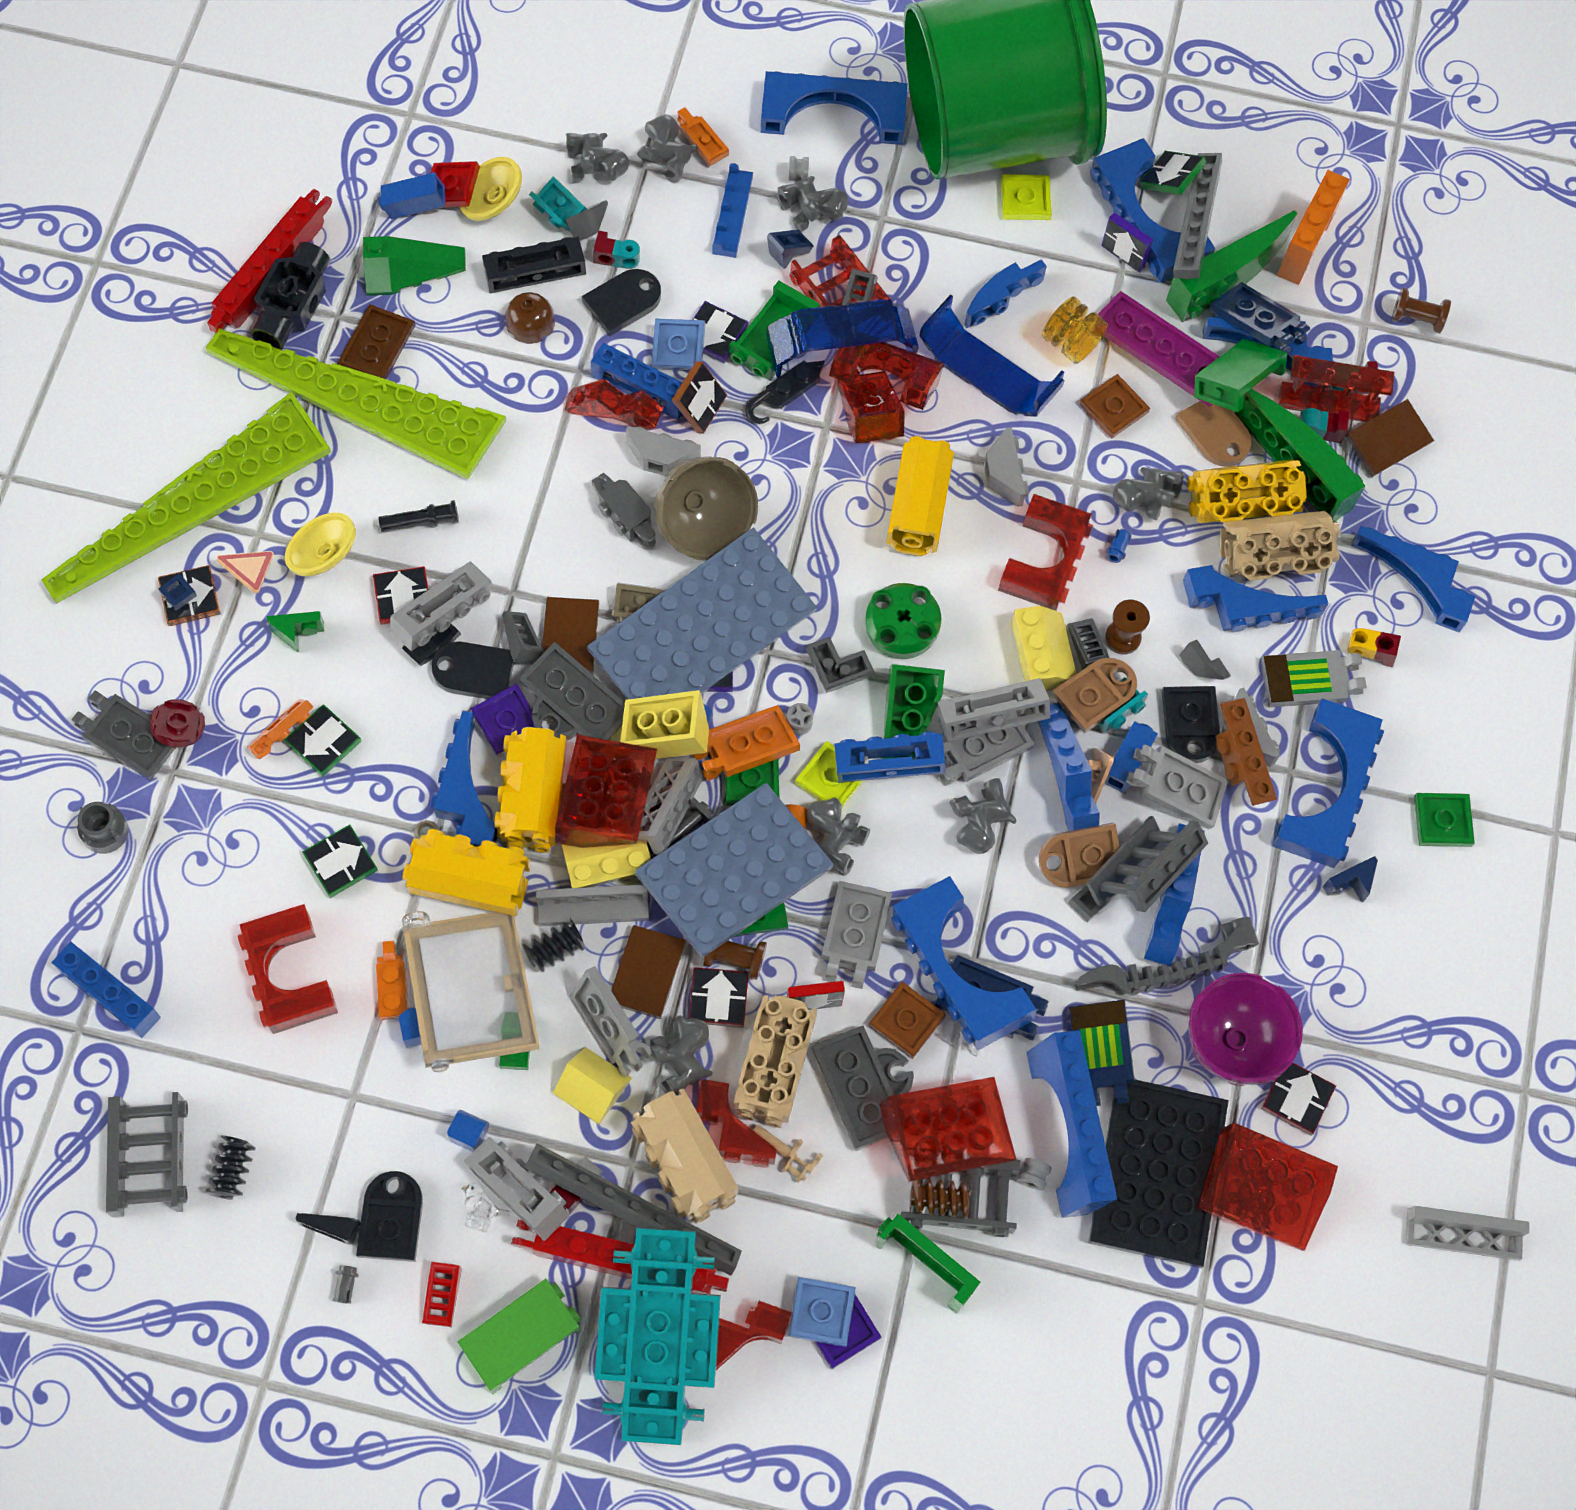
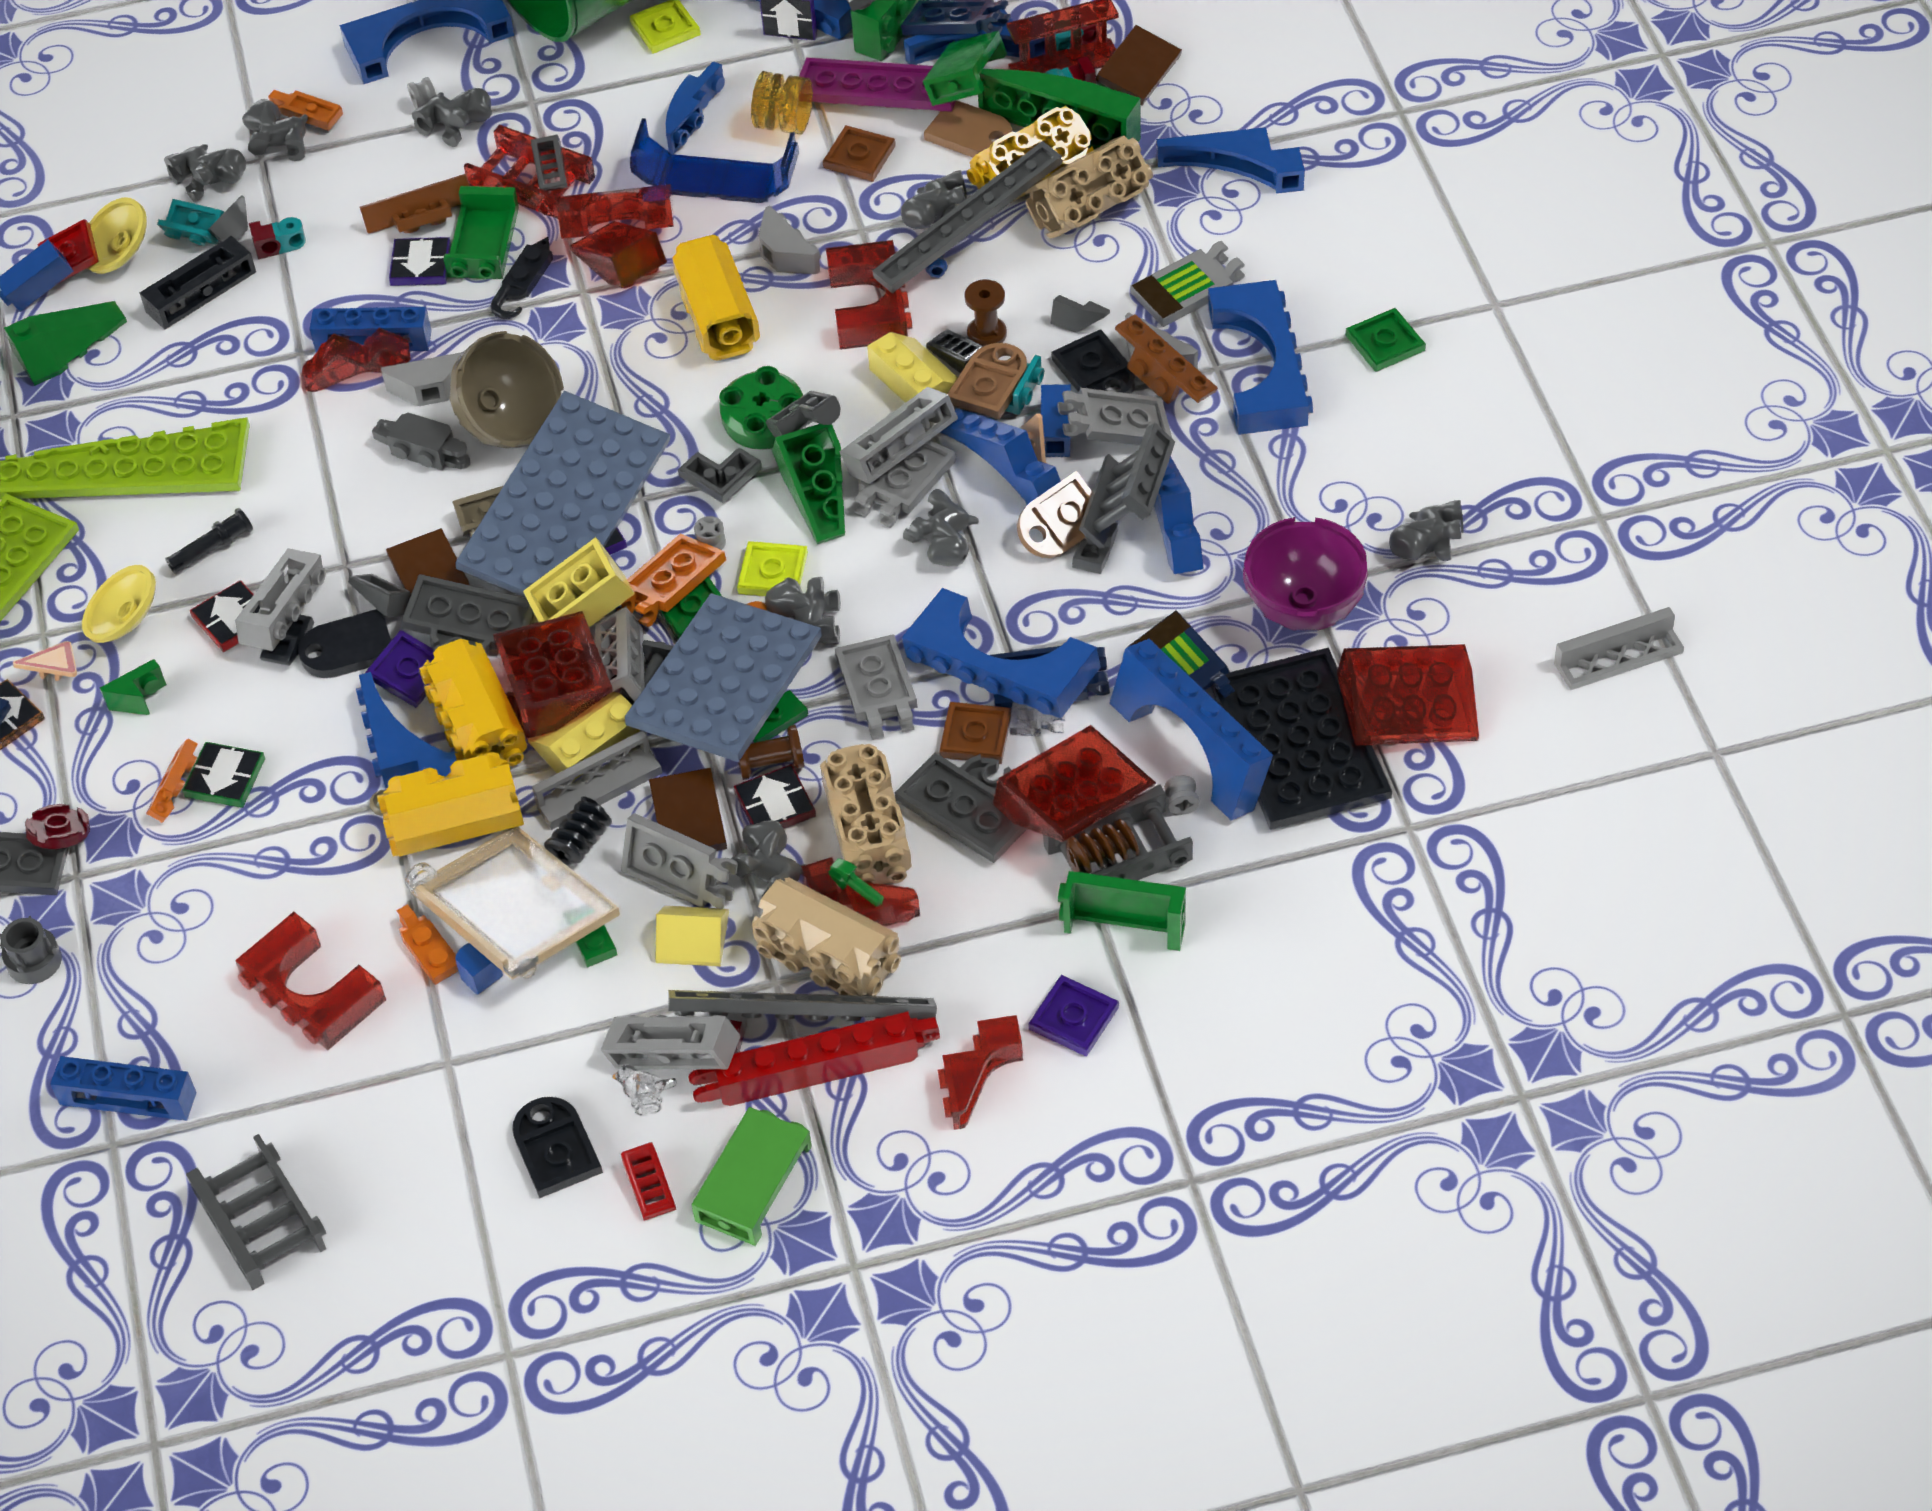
camera: 20 degrees left, 15 degrees down
(230, 1168) = (356, 1178): black piece -> none
(338, 1228) = (494, 1178): black slope -> none
(340, 861) = (307, 868): tile -> none
(345, 1284) = (539, 1216): dark grey pin -> none
(377, 342) = (70, 415): reddish brown tile -> none
(467, 1130) = (587, 1029): blue piece -> none
(529, 317) = (220, 328): reddish brown cylinder -> none
(623, 300) = (307, 275): black tile -> none
(658, 1336) = (896, 1094): teal piece -> none
(677, 343) = (390, 282): medium blue tile -> none
(699, 397) = (440, 314): tile -> none
(728, 1116) = (844, 875): none -> green bar
(732, 212) = (376, 156): blue hinge -> none
(736, 280) = (415, 207): none -> dark orange bracket
(786, 244) = (449, 159): dark blue slope -> none
(789, 1153) = (932, 897): tan piece -> none
(819, 995) = (881, 732): tile -> none
(822, 1311) = (1046, 1005): medium blue tile -> none
(838, 328) = (540, 193): clear blue windscreen -> none
(927, 749) = (821, 518): blue brick -> none
(932, 648) = (809, 408): none -> dark grey brick
(1160, 530) = (967, 217): none -> dark grey plate
(1237, 936) = (1158, 603): dark grey piece -> none
(1244, 606) = (1088, 253): blue arch -> none
(1299, 1098) = (1393, 618): tile -> none
(1357, 877) = (1333, 417): dark blue slope -> none
(1373, 1035) = (1429, 532): none -> dark grey animal
(1374, 645) = (1232, 229): leg -> none

